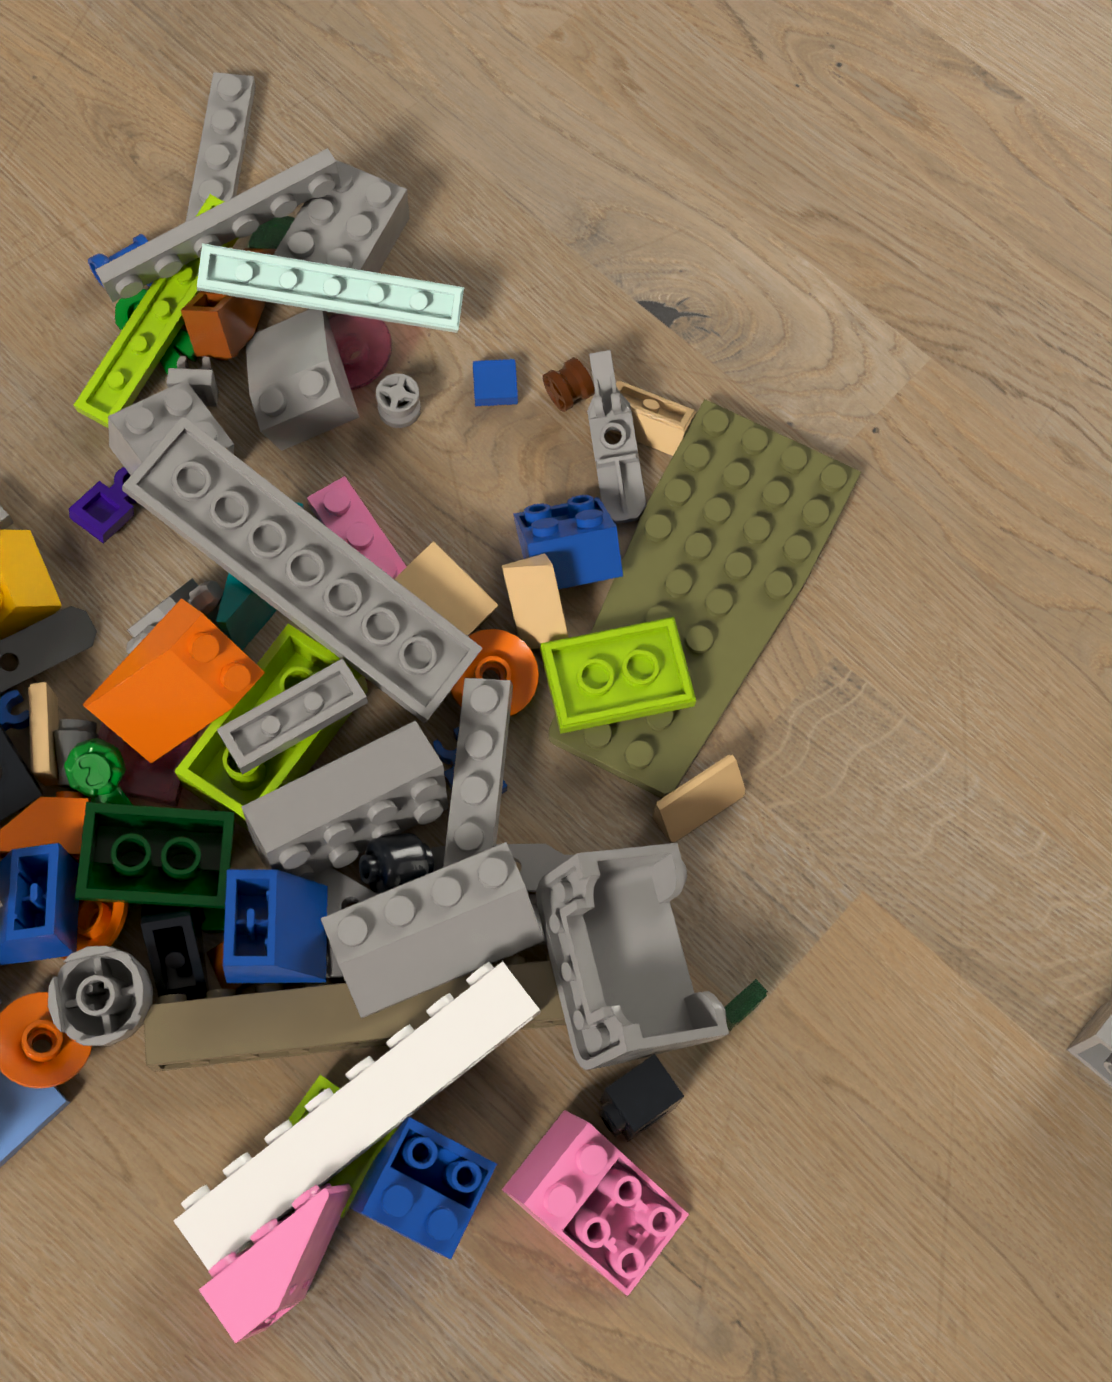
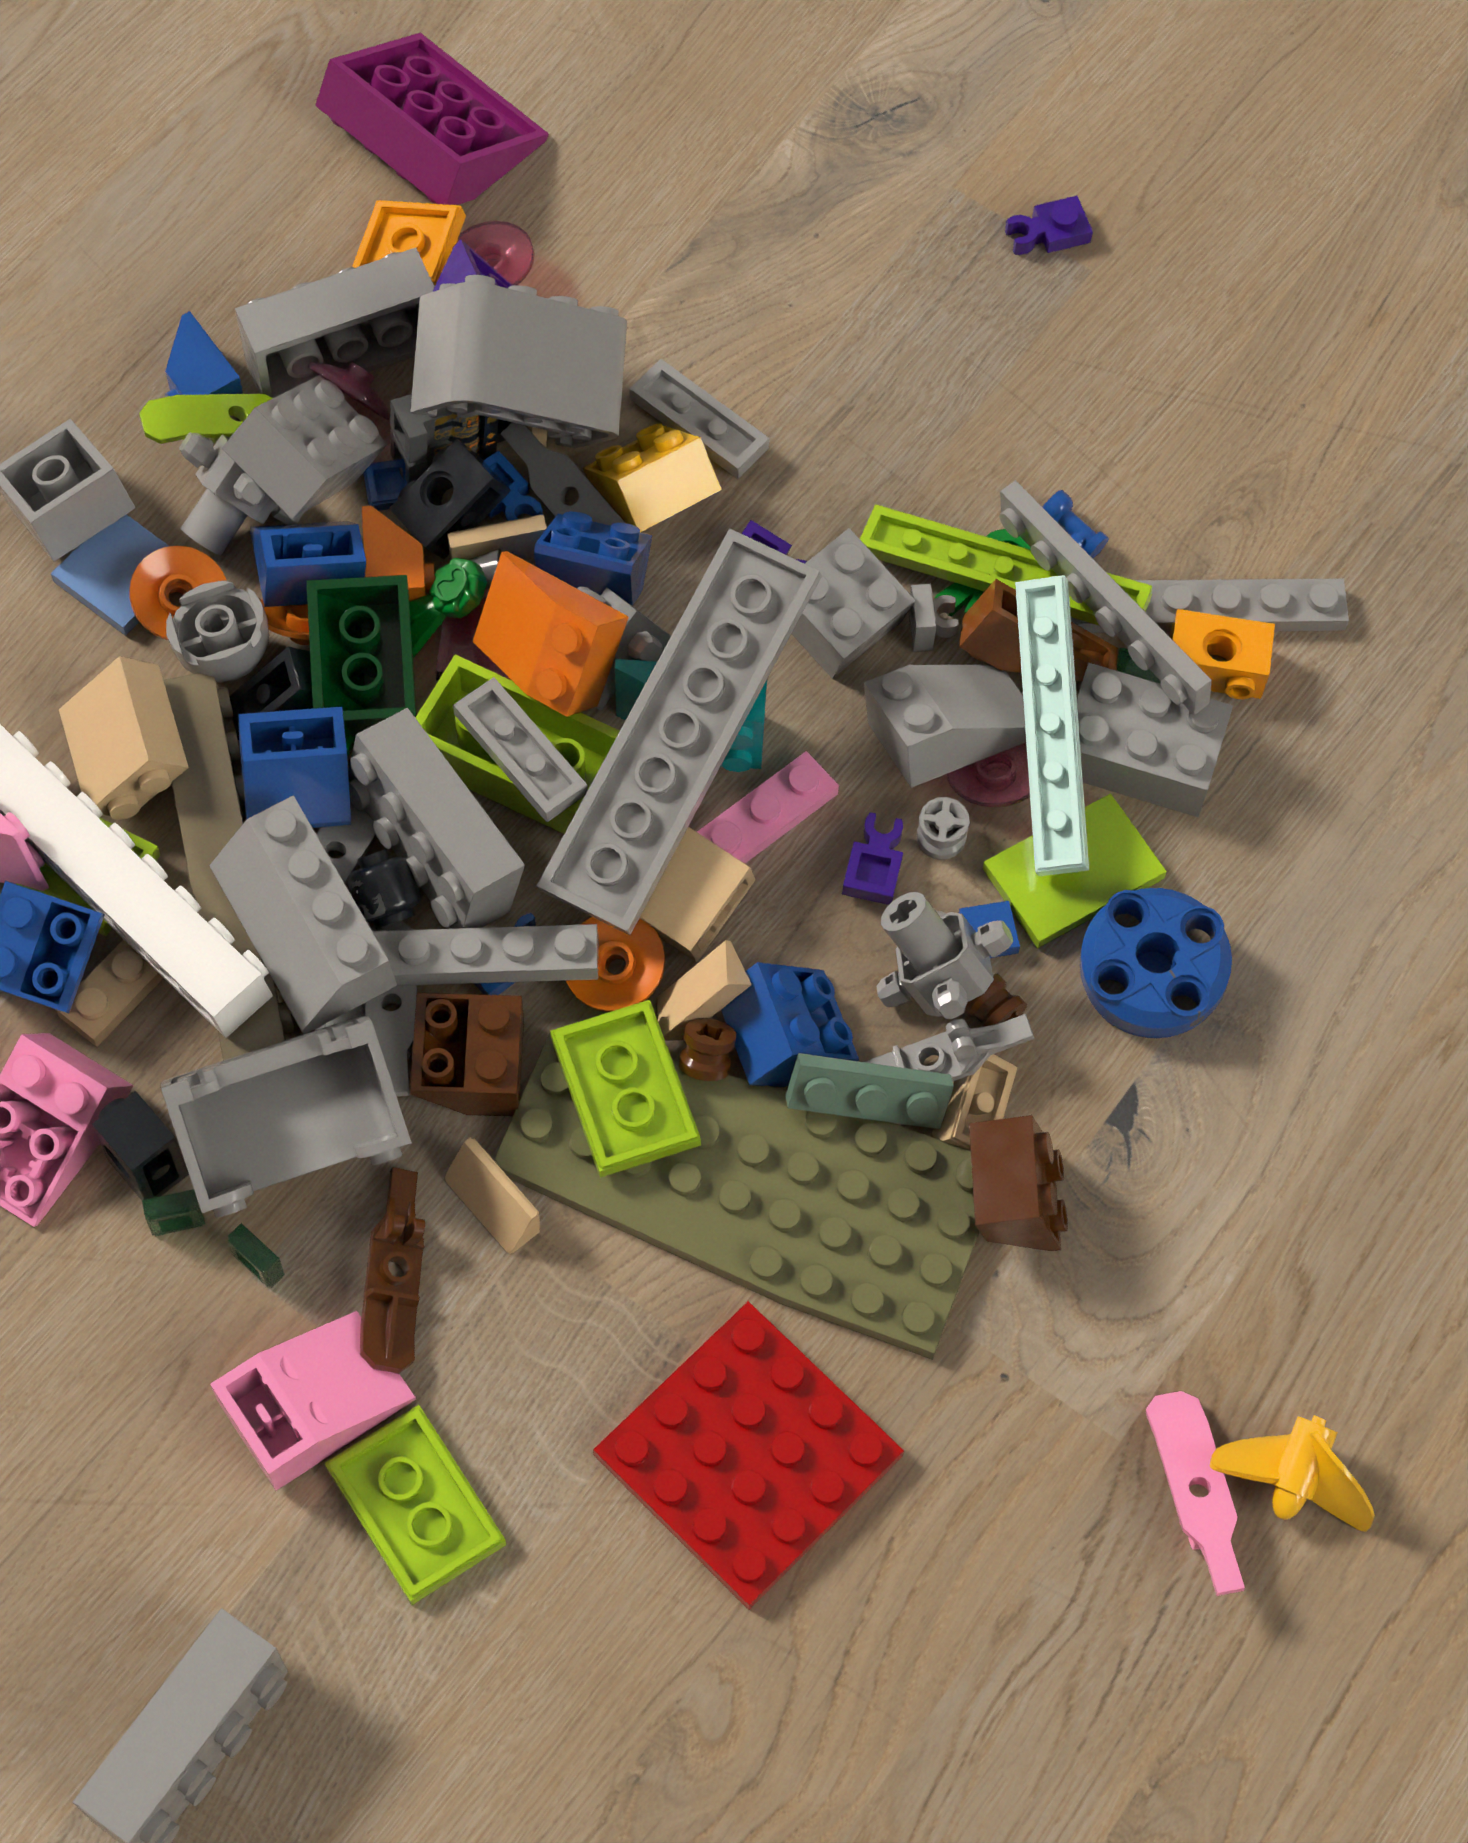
camera: 85 degrees right, 5 degrees down
(84, 642) = (595, 554): none -> blue slope
(206, 1096) = (123, 737): none -> tan brick
(268, 150) = (1241, 642): none -> light orange brick
(426, 460) = (874, 865): none -> dark purple plate
(460, 1121) = (110, 993): none -> tan plate
(480, 328) = (1064, 901): none -> lime tile
(534, 408) = (938, 956): none -> light grey piece
(544, 261) = (1155, 962): none -> blue piece
(569, 799) = (468, 1052): none -> reddish brown slope
(588, 604) = (707, 1049): none -> reddish brown wheel
(642, 482) = (869, 1091): none -> sand green plate
(694, 1077) = (173, 1213): none -> clear green tile
(736, 380) = (1016, 1183): none -> reddish brown slope
(785, 893) = (389, 1300): none -> reddish brown piece
(877, 963) = (308, 1398): none -> bright pink slope
(932, 623) = (748, 1454): none -> red plate
(957, 306) = (1186, 1453): none -> bright pink piece
(964, 889) = (415, 1504): none -> lime tile
(967, 233) = (1300, 1469): none -> yellow piece

